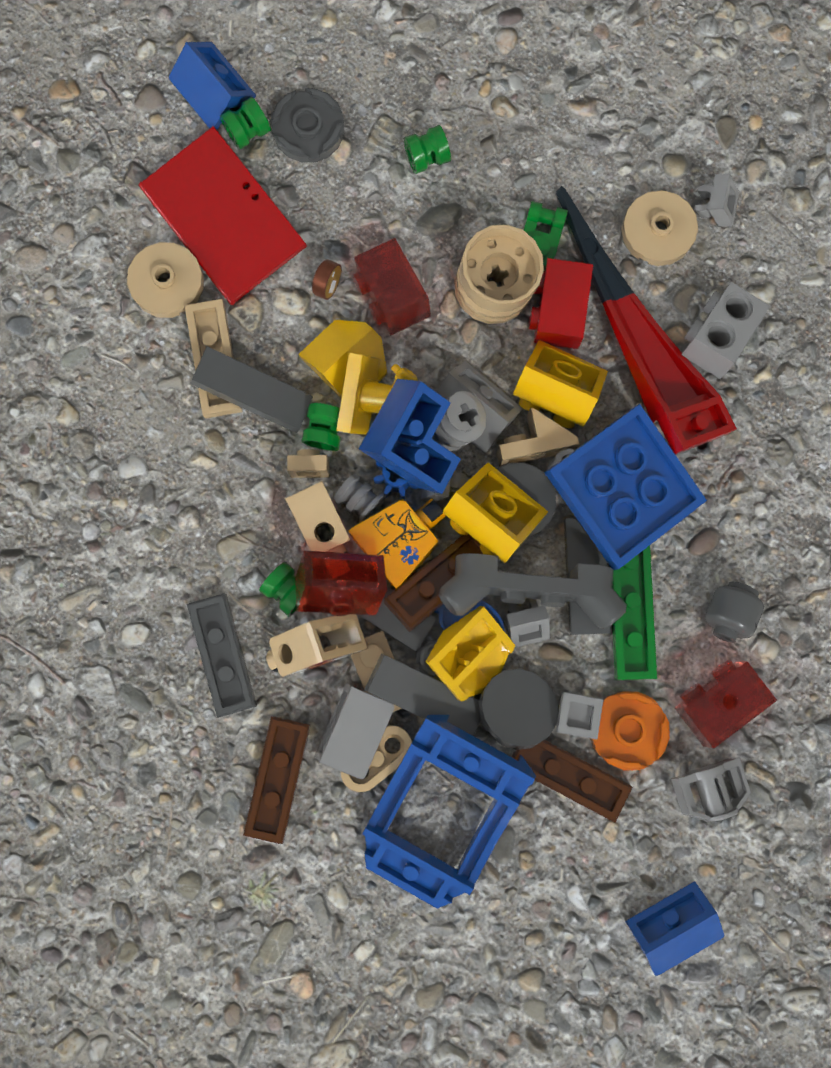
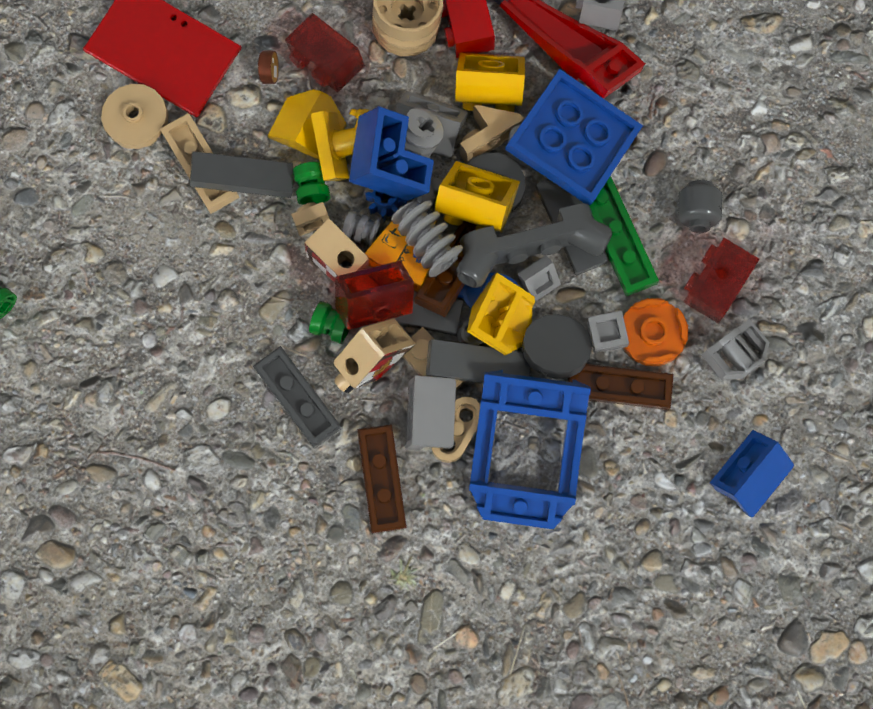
camera: 15 degrees left, 5 degrees down
(423, 540) = (426, 236): none -> light grey piece

